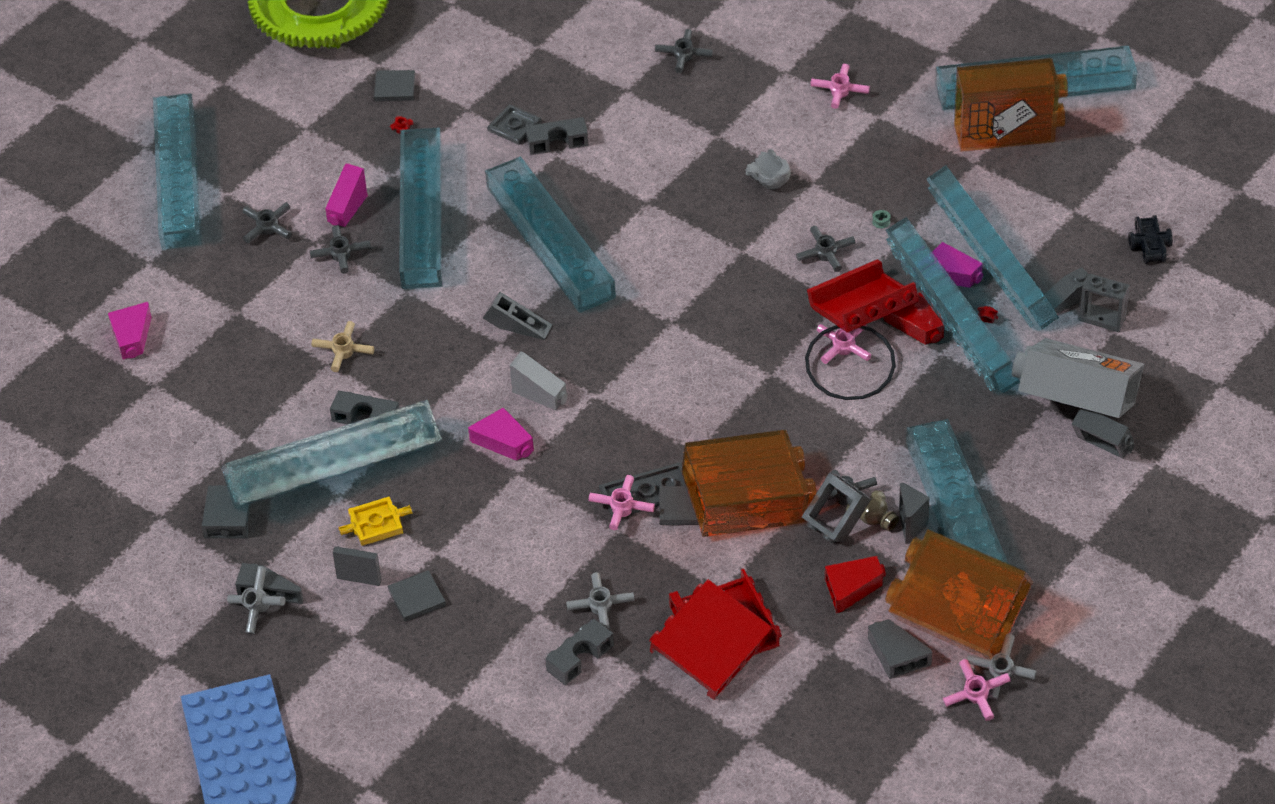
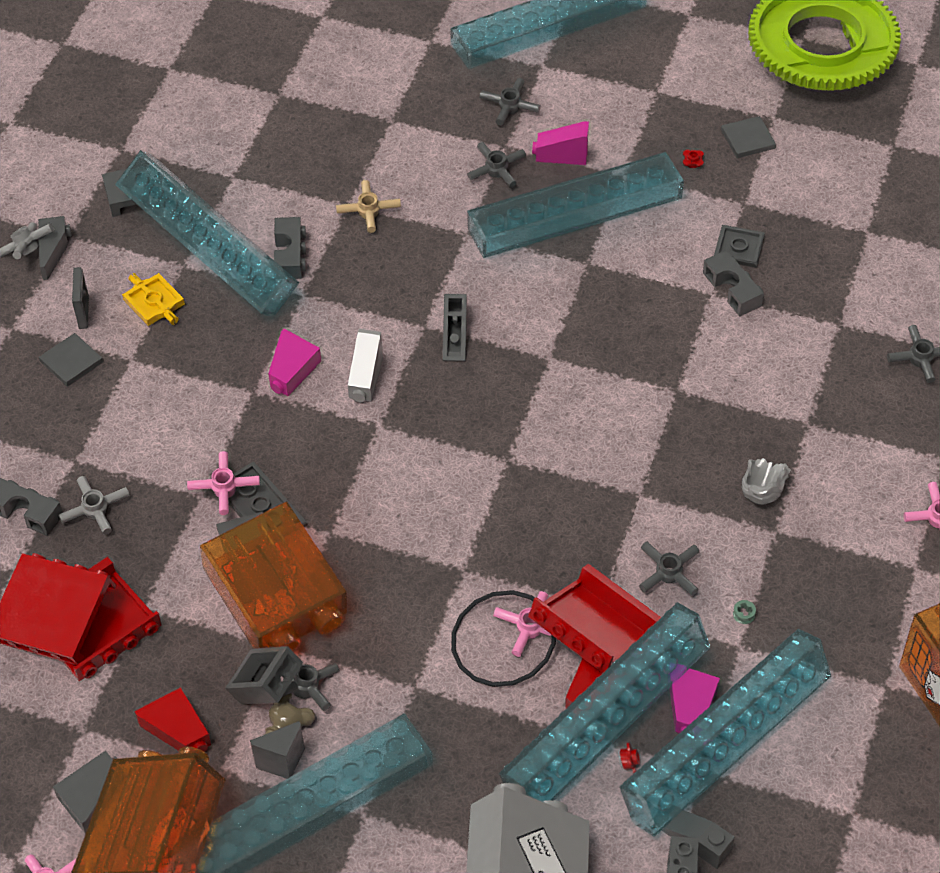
camera: 70 degrees right, 5 degrees up
(131, 329) = (333, 54): dark pink slope -> none
(550, 234) = (580, 317): clear light blue brick -> none

